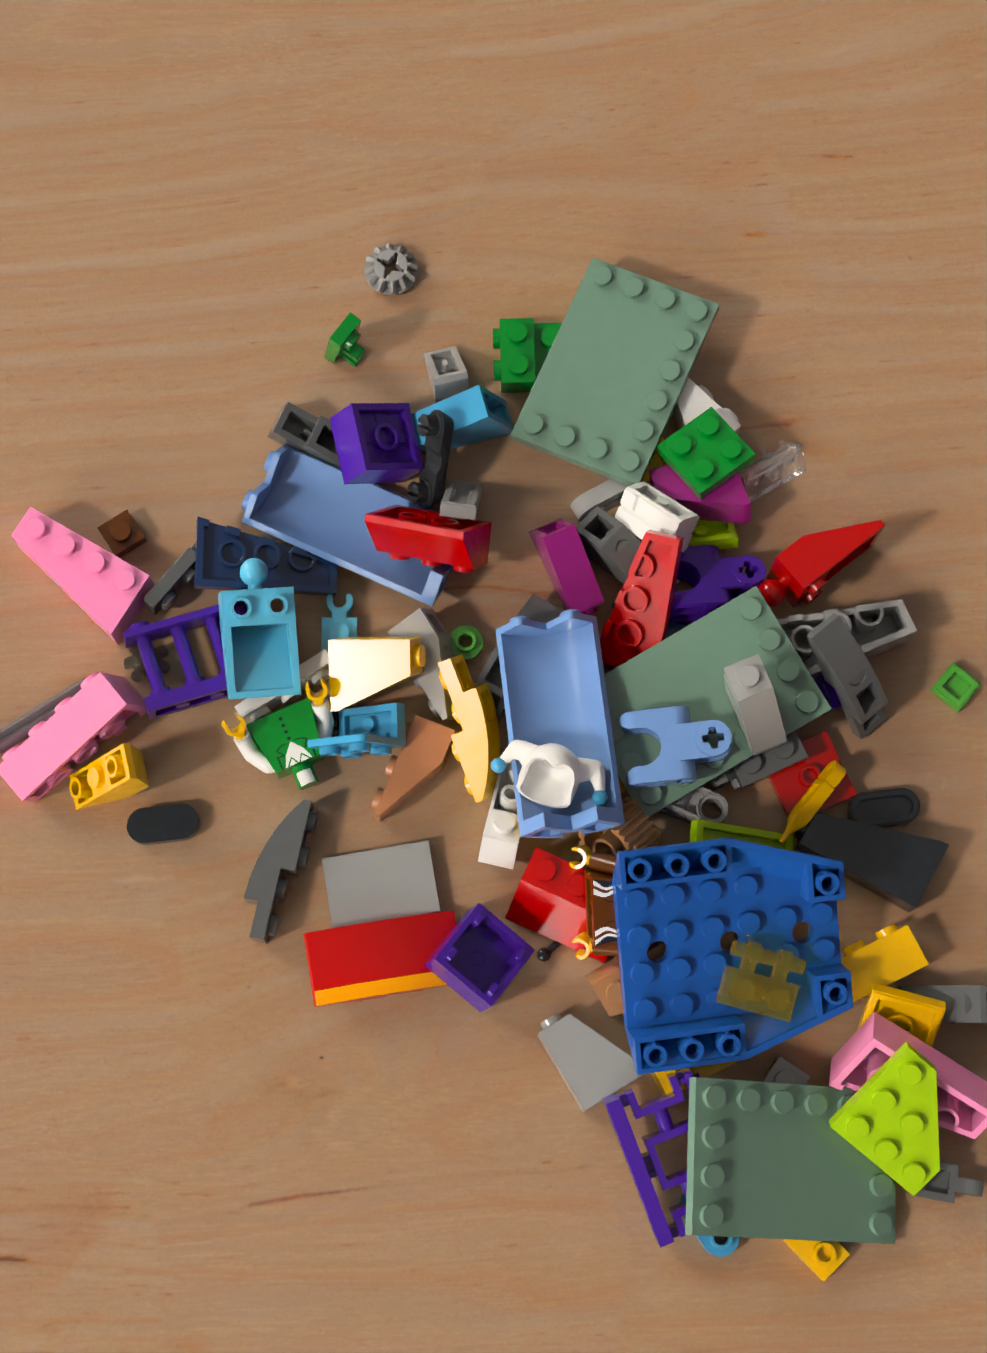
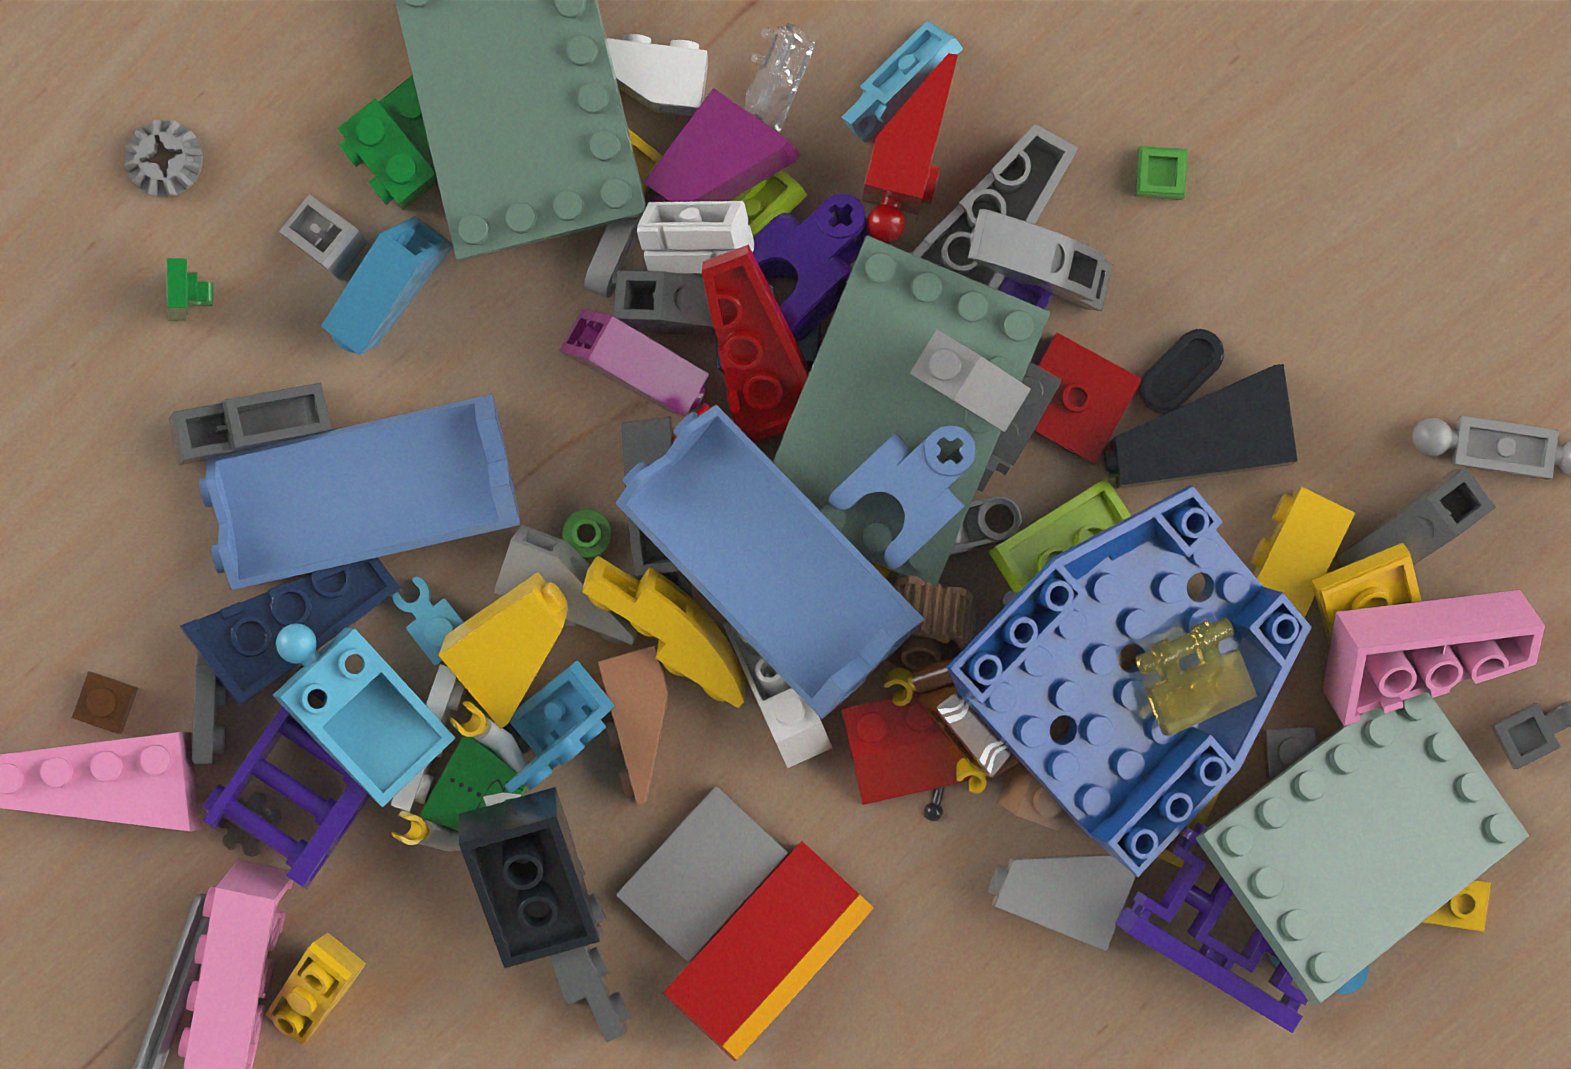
camera: 35 degrees left, 10 degrees up
(163, 824) = (412, 989): black tile -> none
(279, 804) = (528, 877): none -> black slope
(376, 443) = (313, 385): dark purple container -> none
(430, 537) = (460, 449): red slope -> none
(438, 431) = (376, 324): black piece -> none
(461, 500) = (462, 380): light grey plate -> none
(479, 957) = (871, 873): dark purple container -> none
(552, 773) = (804, 623): white piece -> none
(706, 453) = (694, 116): green plate -> none
(813, 798) = (1100, 421): yellow piece -> none
(838, 518) = (898, 79): none -> medium azure hinge
(896, 1119) = (1441, 711): lime plate -> none

